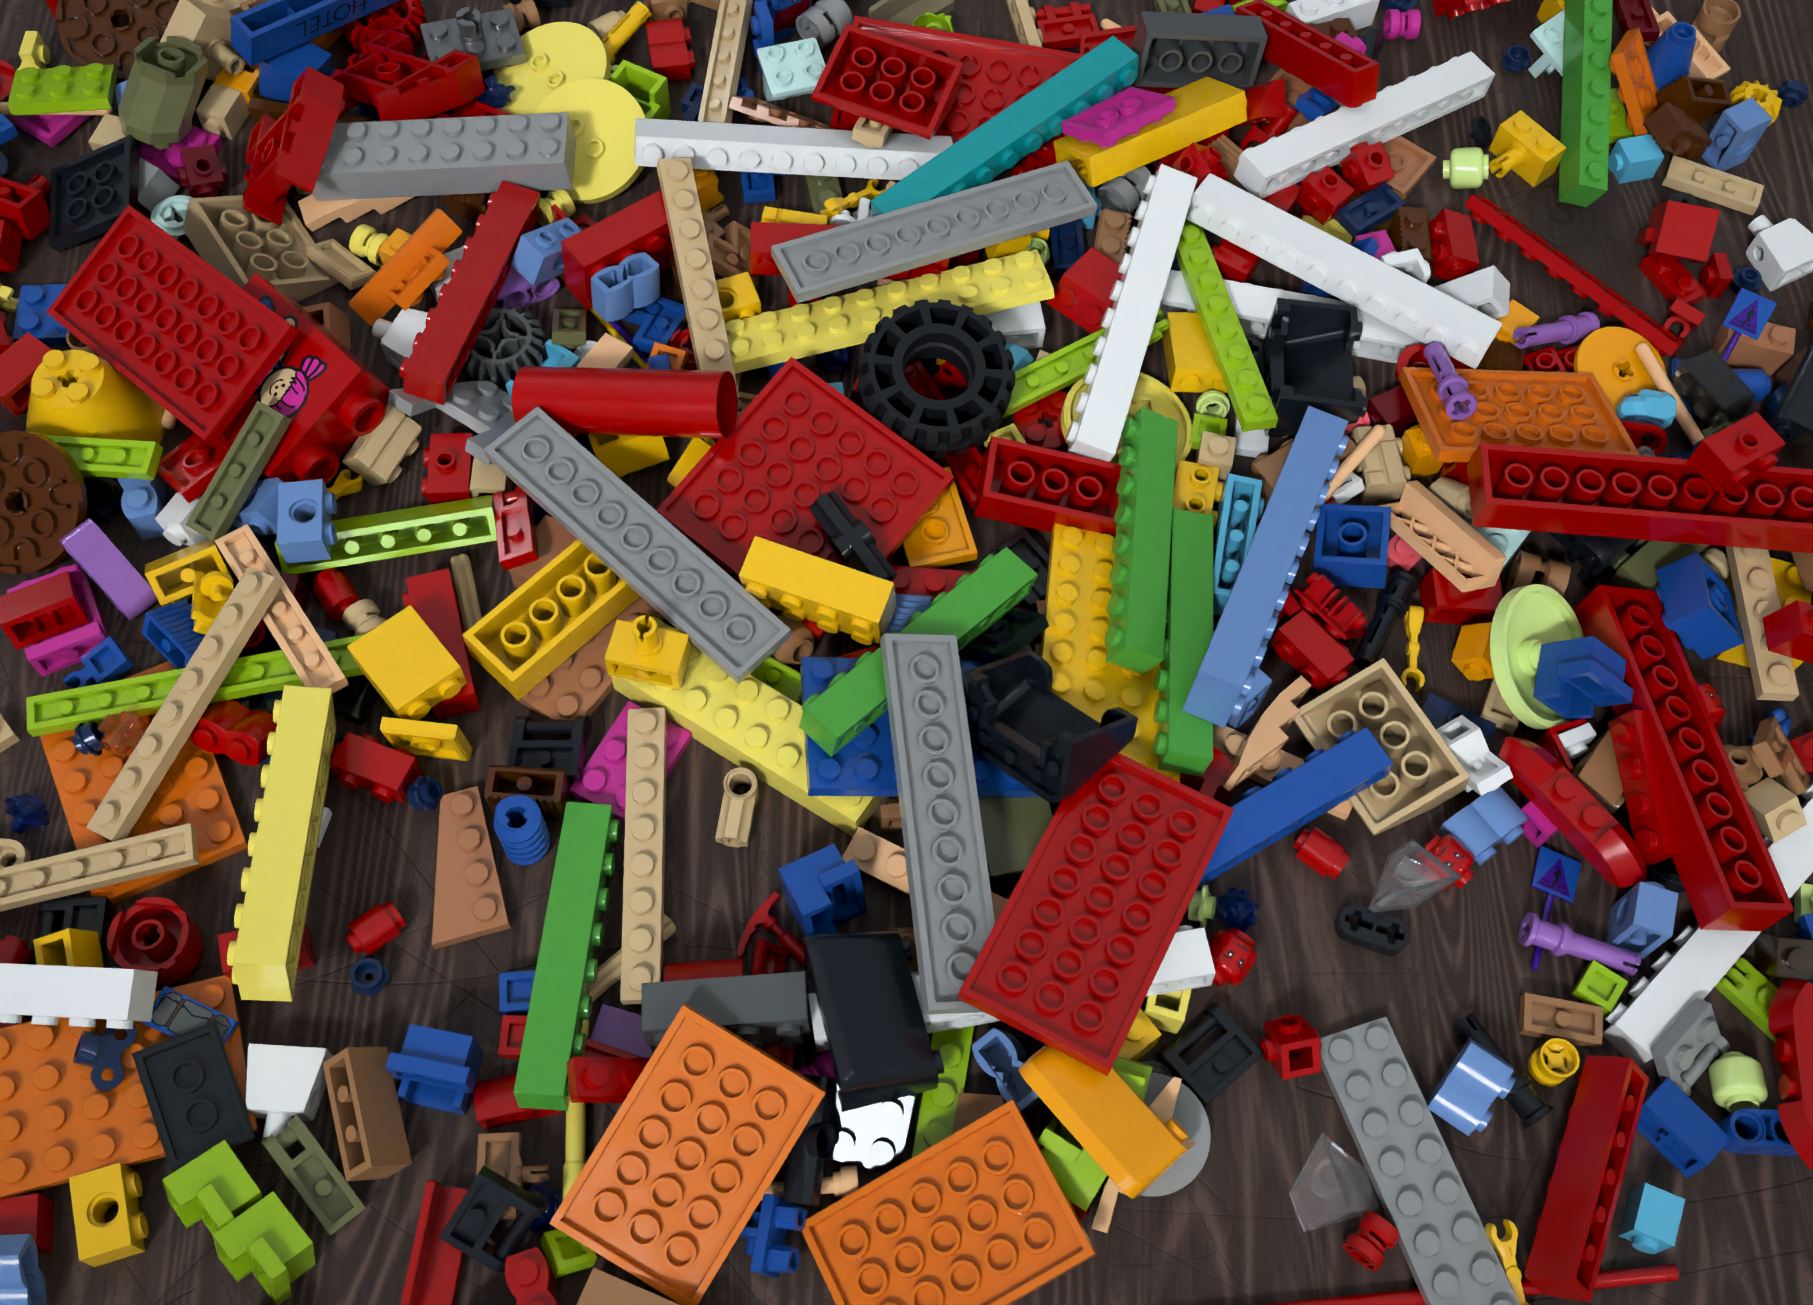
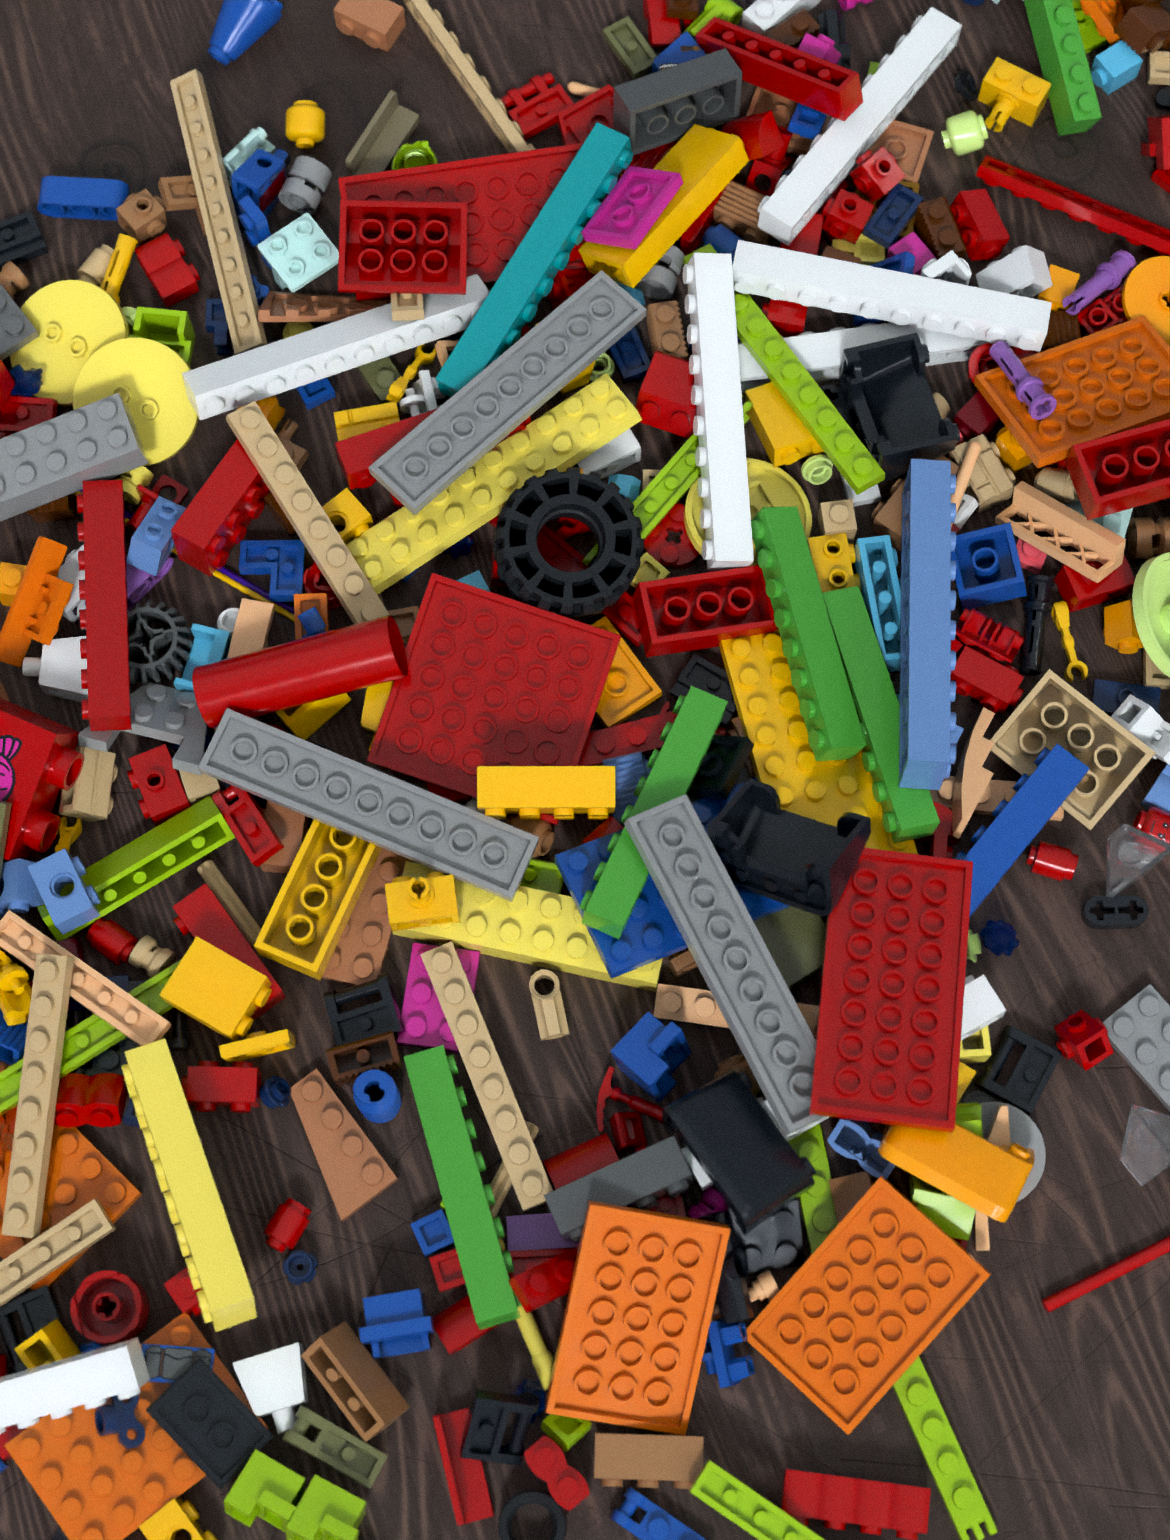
camera: 15 degrees left, 10 degrees up
(503, 1155) = (479, 1373): medium nougat plate -> none
(569, 327) = (204, 603): olive plate -> none
(625, 286) = (244, 548): medium blue brick -> none
(733, 254) = (325, 473): medium nougat plate -> none
(850, 537) = (555, 730): black piece -> none
(1199, 162) = (723, 230): red brick -> none
(1206, 423) = (819, 492): lime plate -> none
(1232, 956) = (1008, 980): red head -> none

